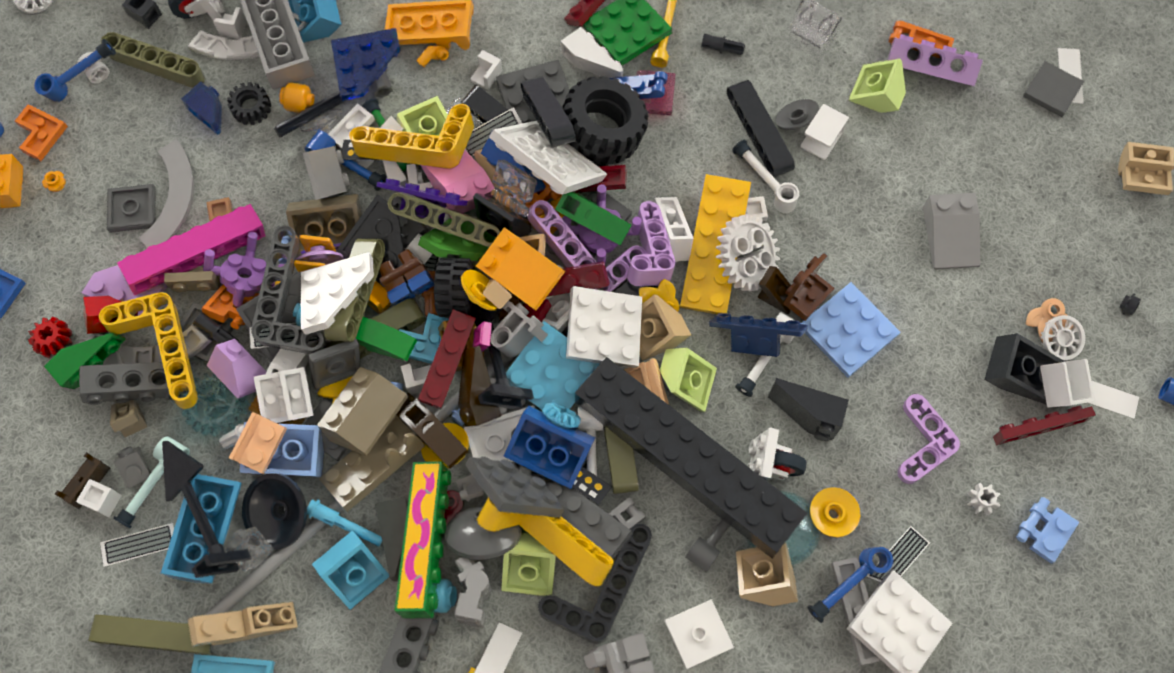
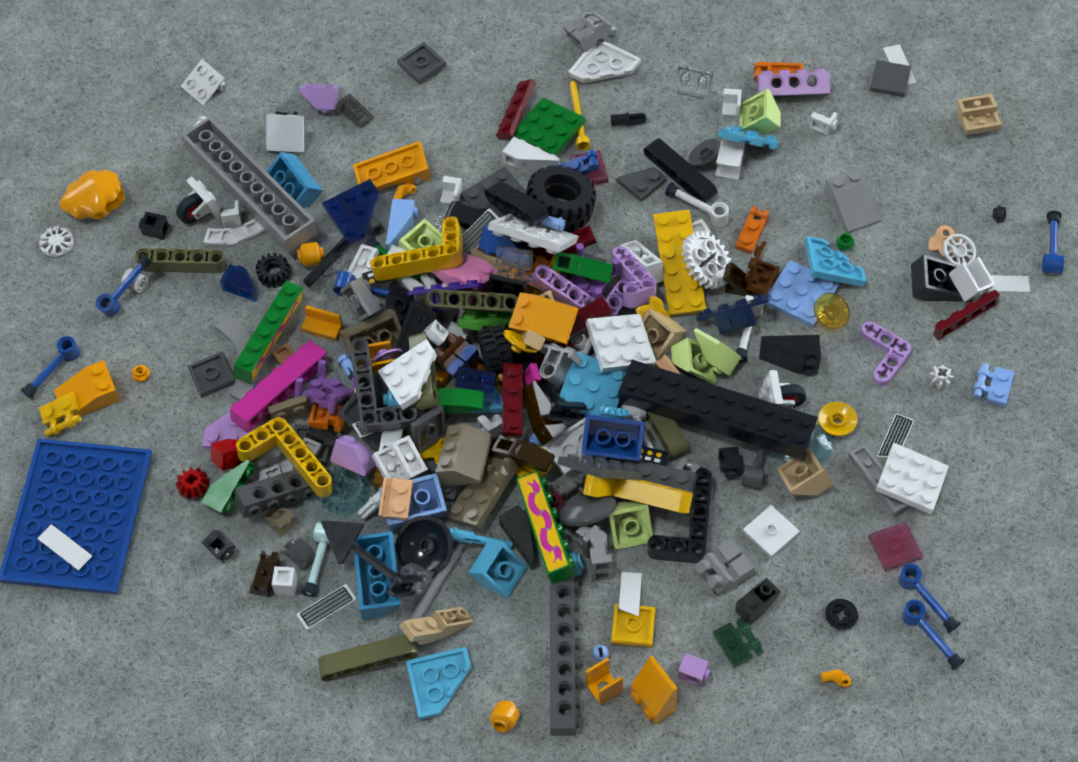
camera: 15 degrees left, 10 degrees down
(44, 131) = (114, 337): orange plate -> none
(45, 425) = (213, 542): none -> black brick
(207, 179) = (268, 332): none -> green brick
(276, 187) = (322, 323): none -> light orange panel
(367, 188) = (399, 302): none -> black dish
(389, 245) = (436, 333): none -> white bracket
(413, 319) = (475, 379): none -> clear blue bracket
(414, 88) = (401, 220): none -> light blue slope
(582, 150) = (552, 222): none -> light blue pin
(681, 525) = (729, 462): none -> black brick
(711, 128) = (642, 182): none -> dark grey wing
(717, 377) = (716, 353): none -> yellowish green slope
(818, 229) = (752, 230): none -> orange plate
(821, 608) = (874, 447): blue piece -> none
(842, 105) = (736, 134): none -> medium azure plate
(852, 61) = (731, 102): none -> white panel
(886, 362) = (836, 306): none -> clear yellow dish
(899, 305) = (832, 265): none -> medium azure plate
(926, 274) = (845, 237): none -> green plate
(951, 121) = (823, 124): none -> white bracket

